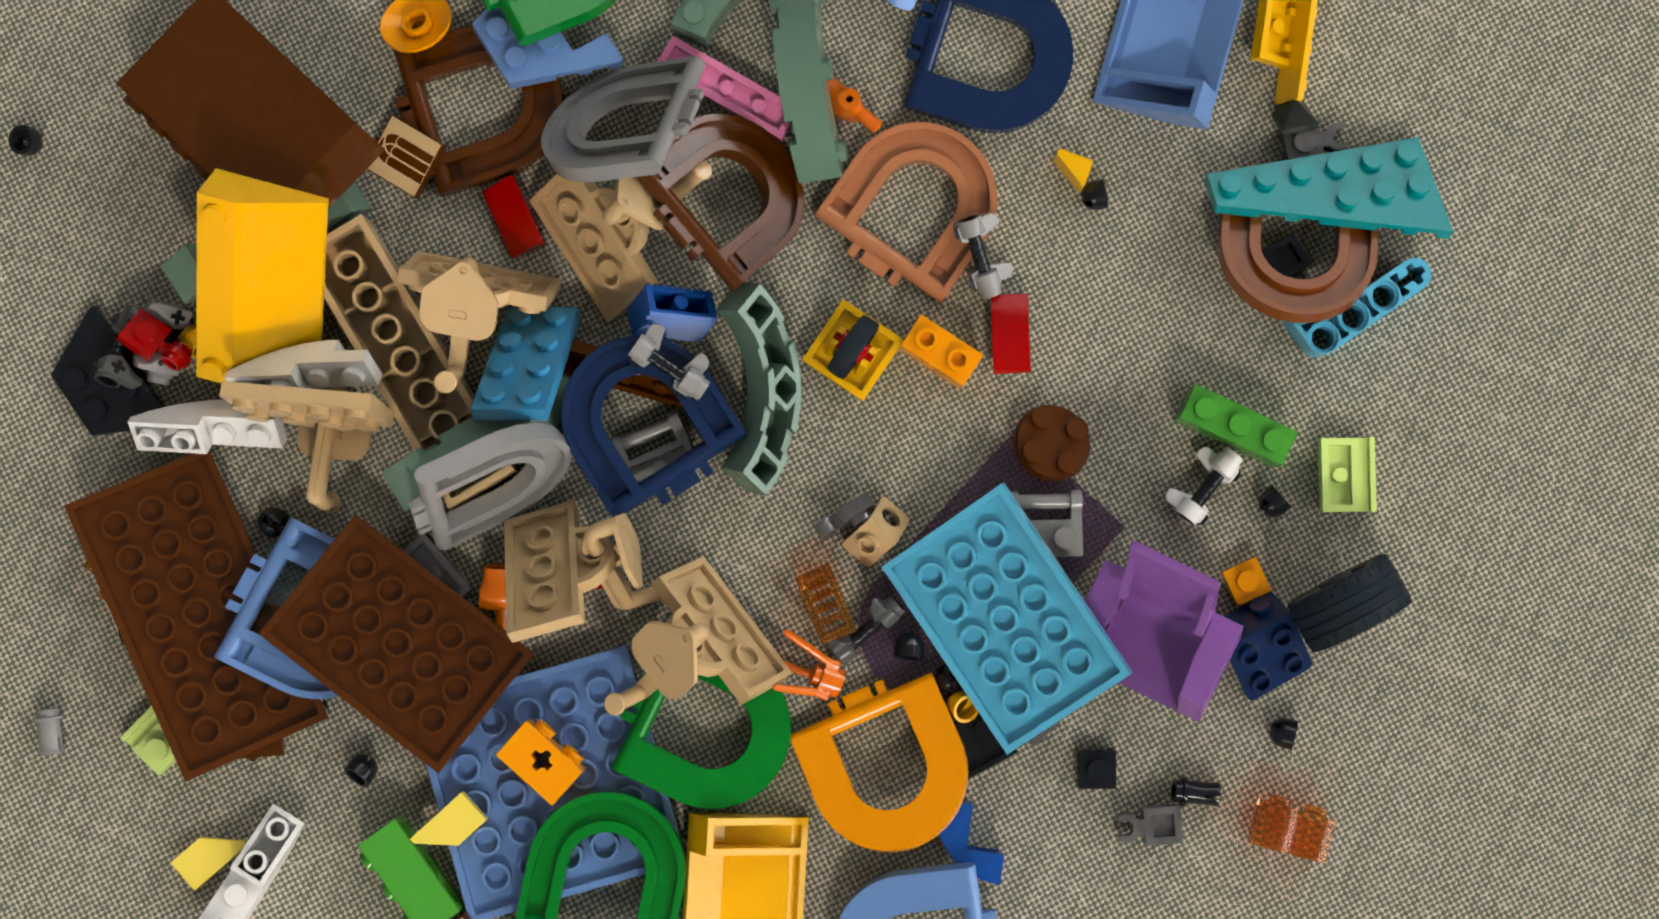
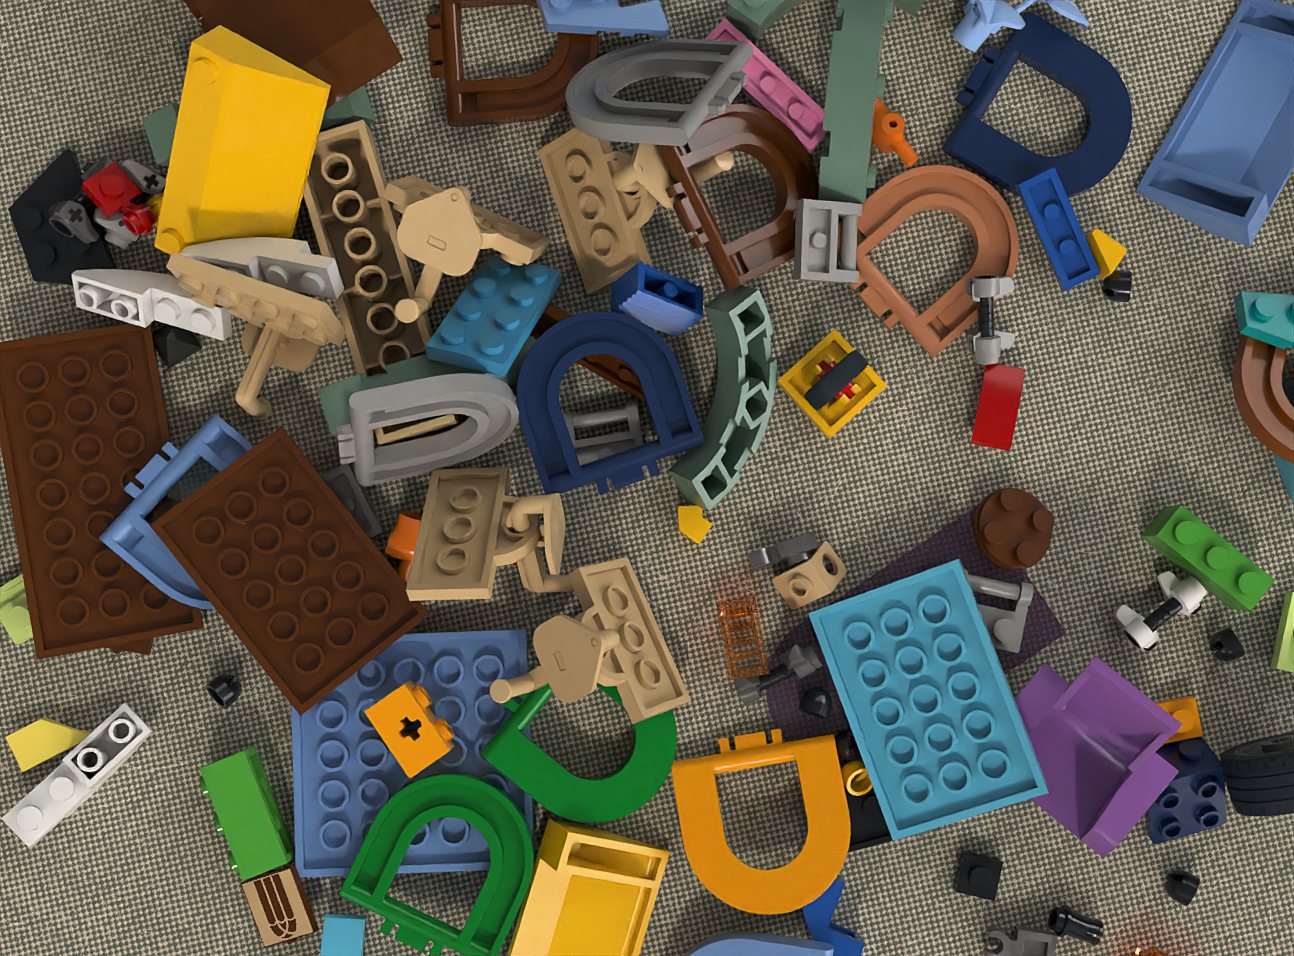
camera: 10 degrees right, 0 degrees up
(236, 462) = (175, 344): none -> pearl dark grey slope
(275, 514) = (202, 407): black hinge -> none
(407, 156) = (423, 76): piece -> none
(452, 823) = (302, 769): light yellow tile -> none
(513, 217) = (517, 164): red slope -> none
(687, 380) = (658, 371): light grey piece -> none
(755, 510) = (692, 523): none -> yellow piece
(806, 222) = (817, 241): none -> light grey plate
(825, 678) = (723, 714): orange plant -> none
(940, 352) = (922, 408): light orange brick -> none
(1026, 156) = (1057, 228): none -> blue plate

